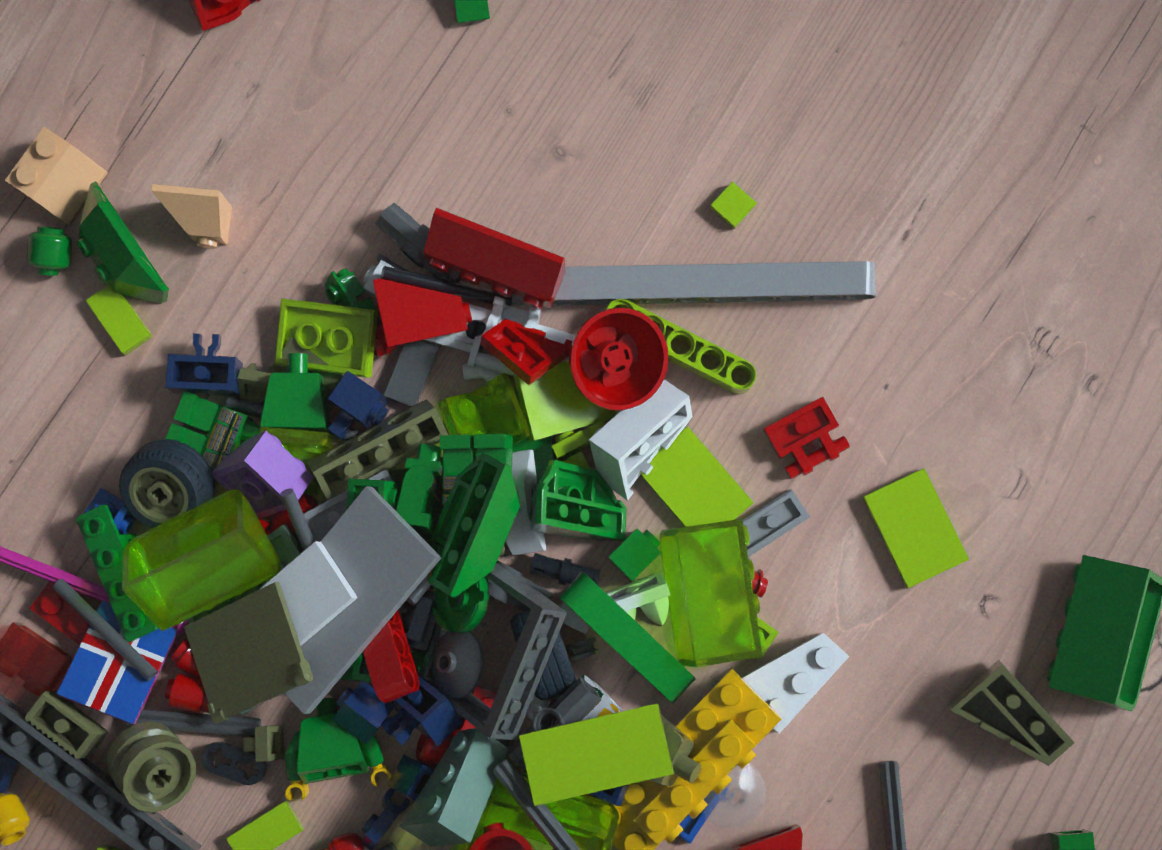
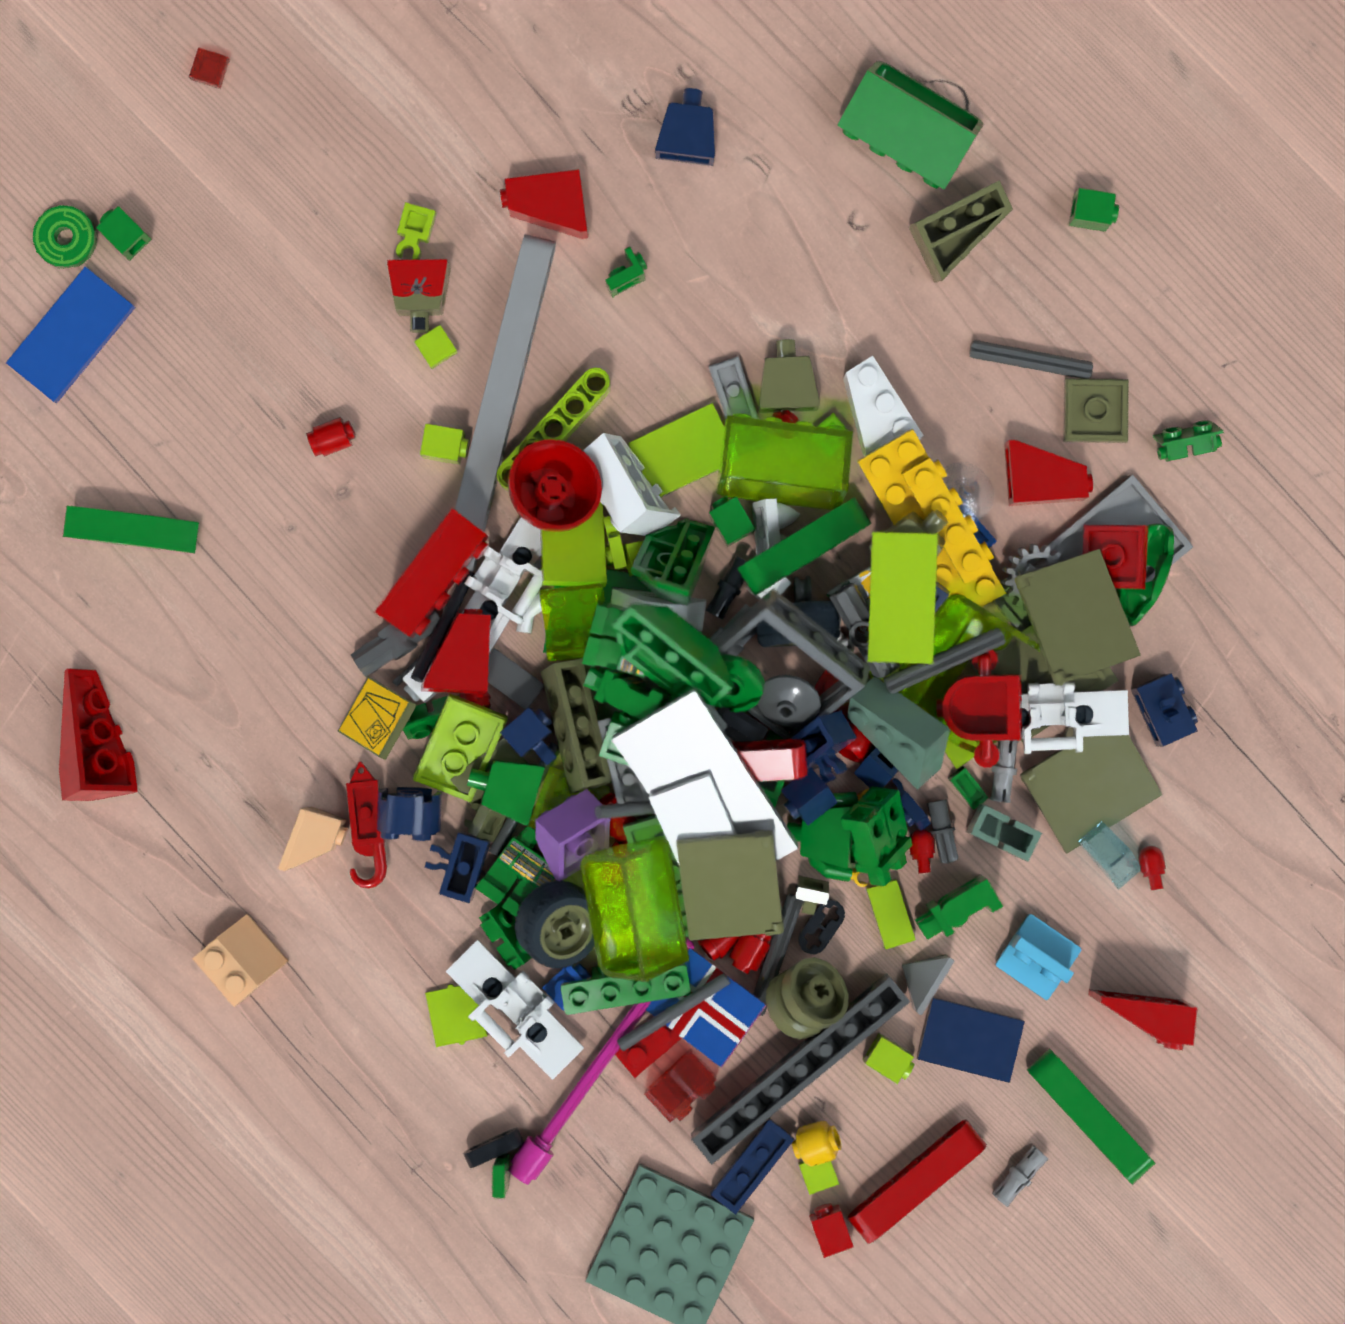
camera: 80 degrees left, 5 degrees up
(49, 250) = (308, 983): green head -> none
(54, 408) = (449, 1016): none -> lime piece
(66, 724) = (749, 1067): olive brick -> none
(80, 471) = (523, 1002): none -> white piece
(116, 252) = (326, 921): green wedge -> none
(119, 319) = (389, 934): lime tile -> none
(154, 425) = (501, 924): none -> green hinge
(227, 265) = (366, 840): none -> red plate
(245, 303) = (409, 812): none -> dark blue brick
(335, 246) = (377, 718): none -> yellow tile
(343, 796) = (878, 834): none -> green hips
(524, 349) = (523, 568): red wing -> none
(611, 124) = (331, 437): none -> red brick
(634, 239) = (444, 444): none -> lime brick
(786, 172) = (419, 289): none -> torso
(797, 575) = (788, 382): none -> olive torso
(801, 428) = (657, 343): red plate -> none
(851, 151) = (415, 226): none -> lime plate
(858, 378) = (625, 278): none -> green bracket
(915, 278) = (548, 201): none -> red slope
(915, 528) = (773, 266): lime tile -> none
(1030, 401) = (687, 131): none -> dark blue torso

